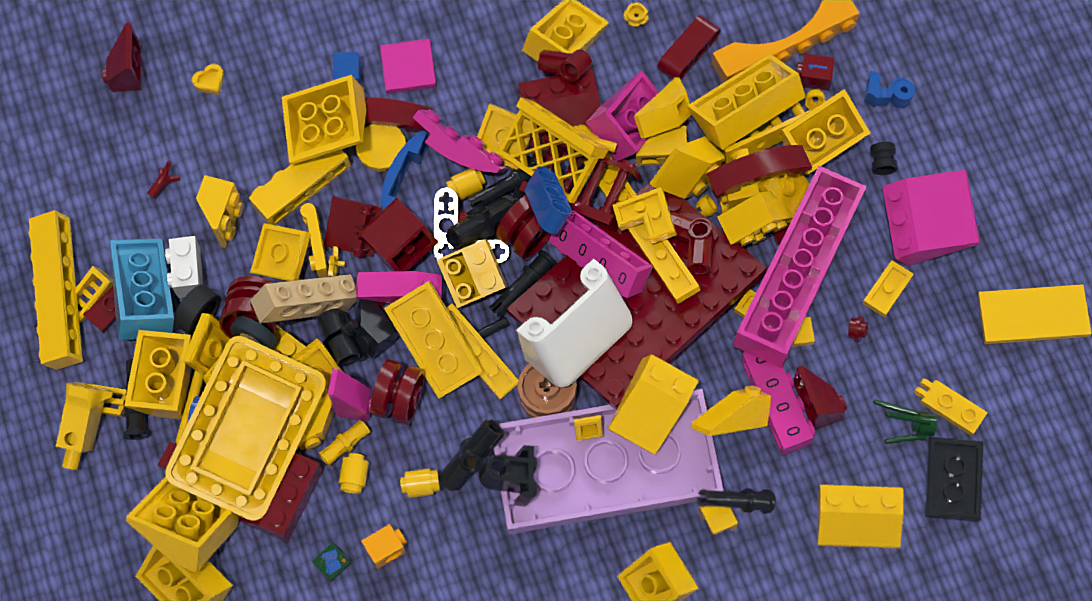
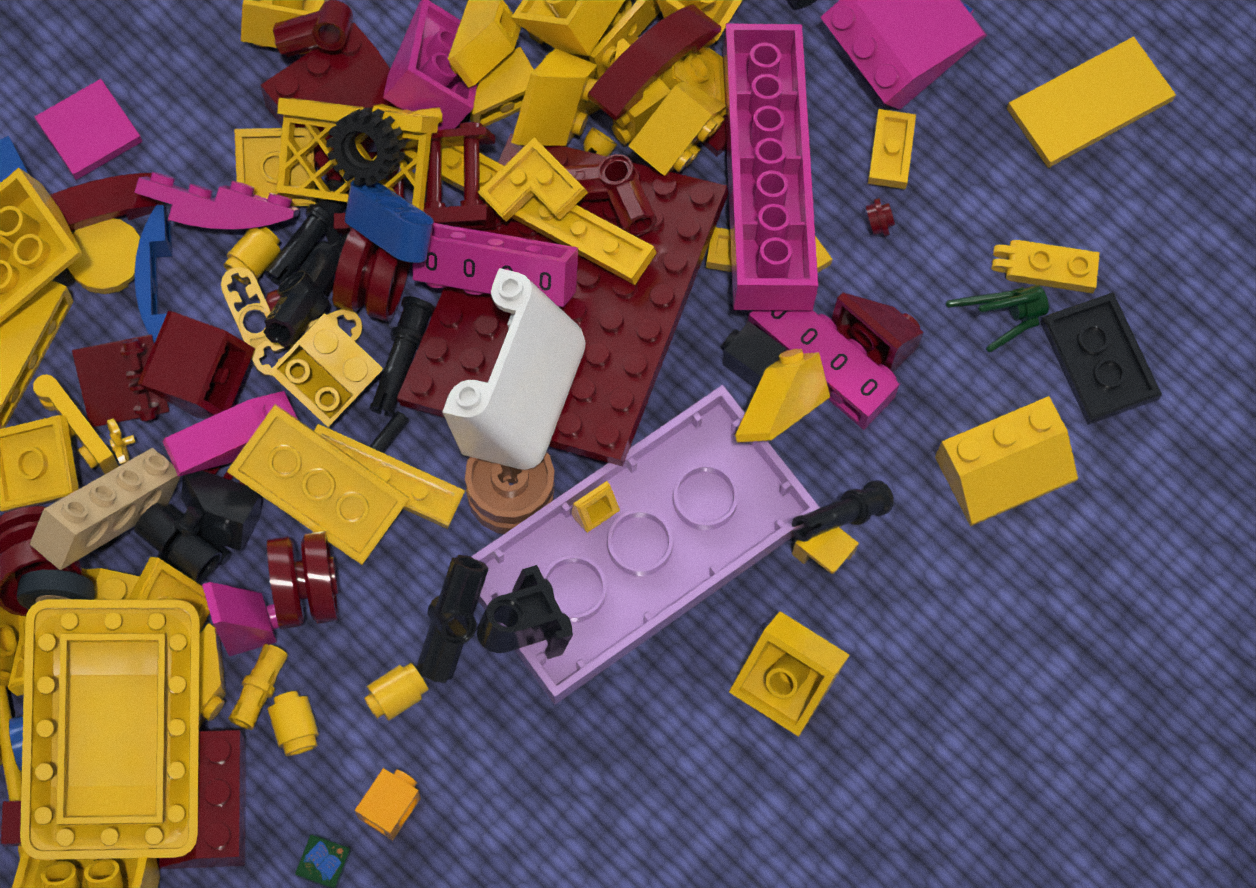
camera: 35 degrees left, 0 degrees up
(544, 154) = (351, 160): none -> black tyre
(652, 403) = (670, 432): yellow slope -> none
(732, 375) = (750, 353): none -> black brick

